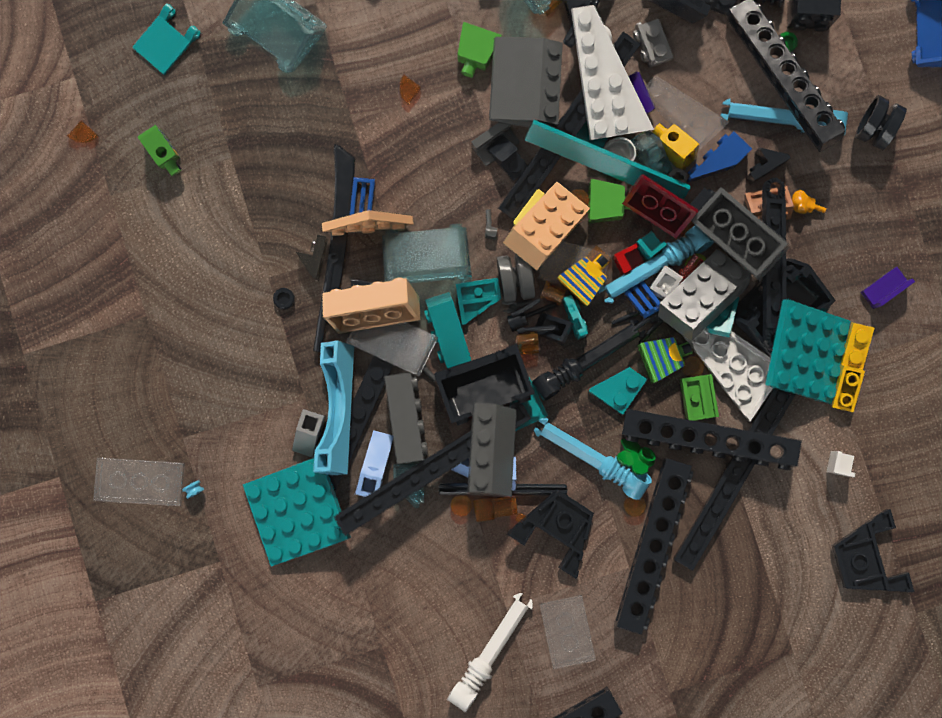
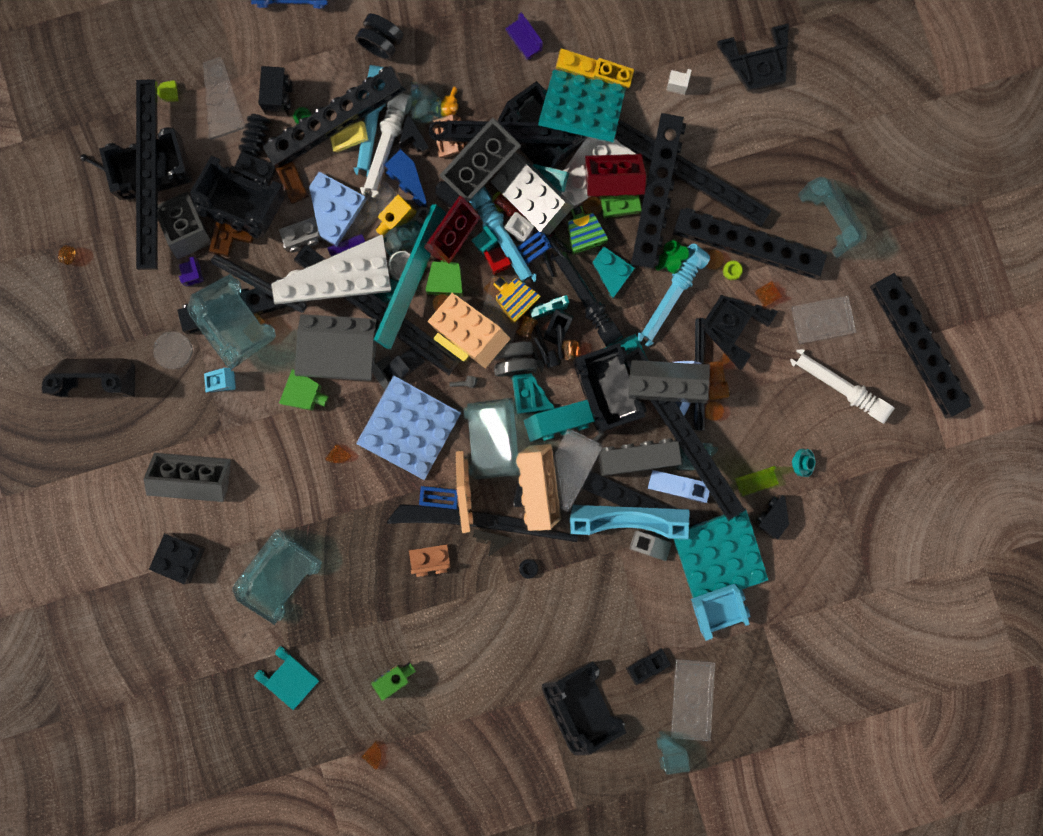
camera: 90 degrees left, 0 degrees up
(78, 460) = (674, 755): none -> clear light blue slope
(127, 359) = (582, 710): none -> black windscreen
(176, 431) = (648, 666): none -> black slope
(193, 489) = (700, 650): medium azure bush -> none
(237, 510) = (720, 609): none -> medium azure panel
(293, 190) = (429, 559): none -> nougat bracket
(339, 574) = (775, 519): none -> black slope
(382, 554) = (757, 480): none -> clear neon green panel
(402, 607) = (804, 462): none -> teal plate
(438, 163) = (408, 428): none -> light blue plate
(596, 567) = (768, 294): none -> clear orange tile
(622, 527) = (732, 270): none -> lime tile
(684, 78) = (334, 207): none -> light blue plate
(712, 33) = (292, 182): none -> reddish brown tile
(716, 639) = (852, 230): none -> clear light blue windscreen
(728, 389) = (615, 175): none -> dark red slope
(764, 93) = (349, 137): none -> light yellow tile
(775, 138) = (390, 128): none -> white piece
(806, 175) = (425, 103): none -> clear light blue slope

